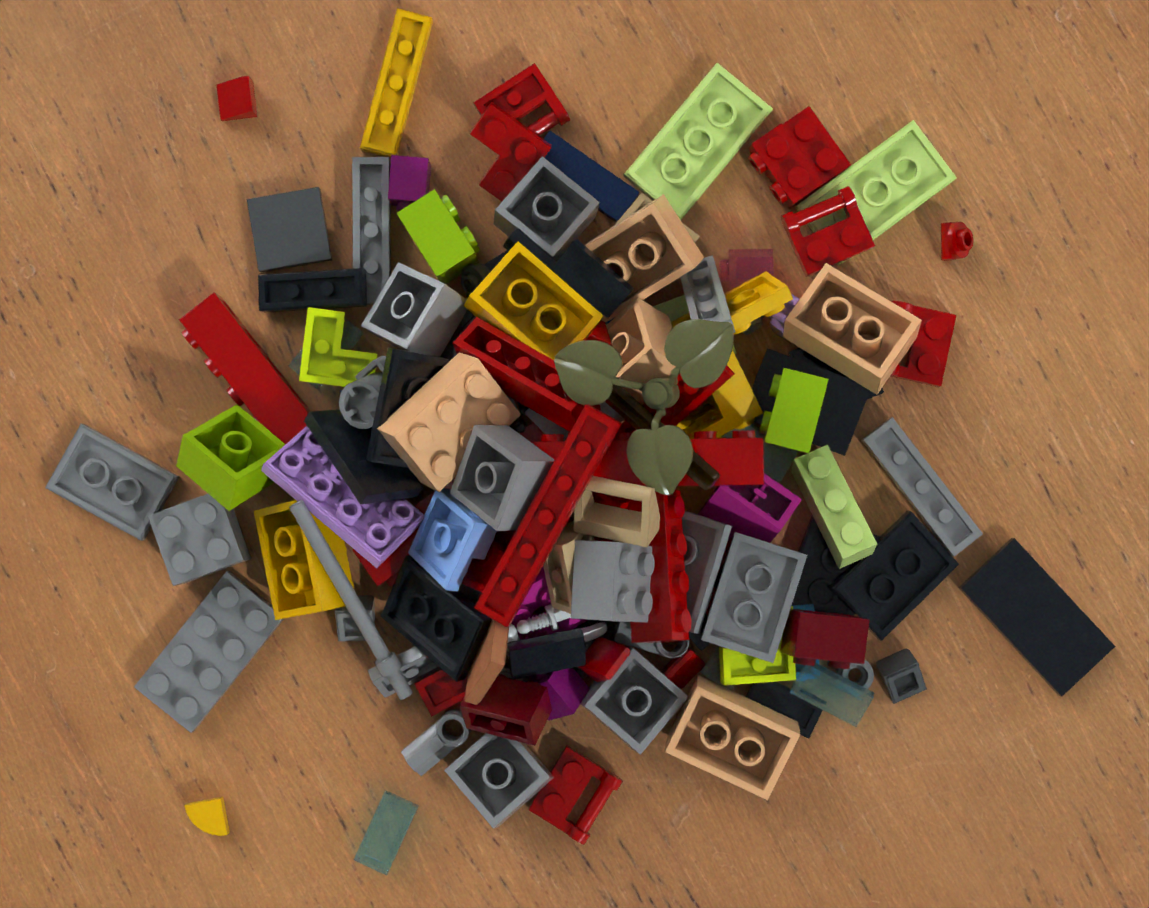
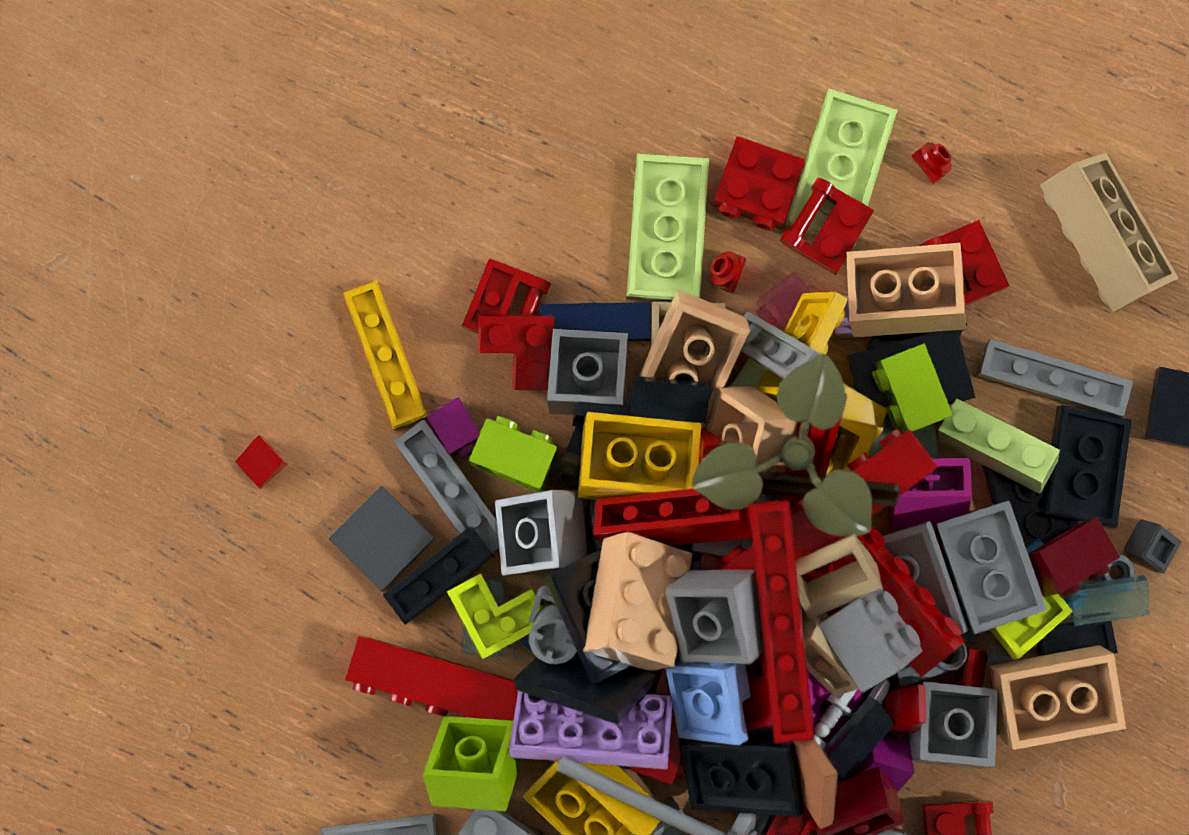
camera: 35 degrees left, 5 degrees down
(721, 210) = (727, 270): none -> red plate
(1055, 399) = (1108, 231): none -> tan slope

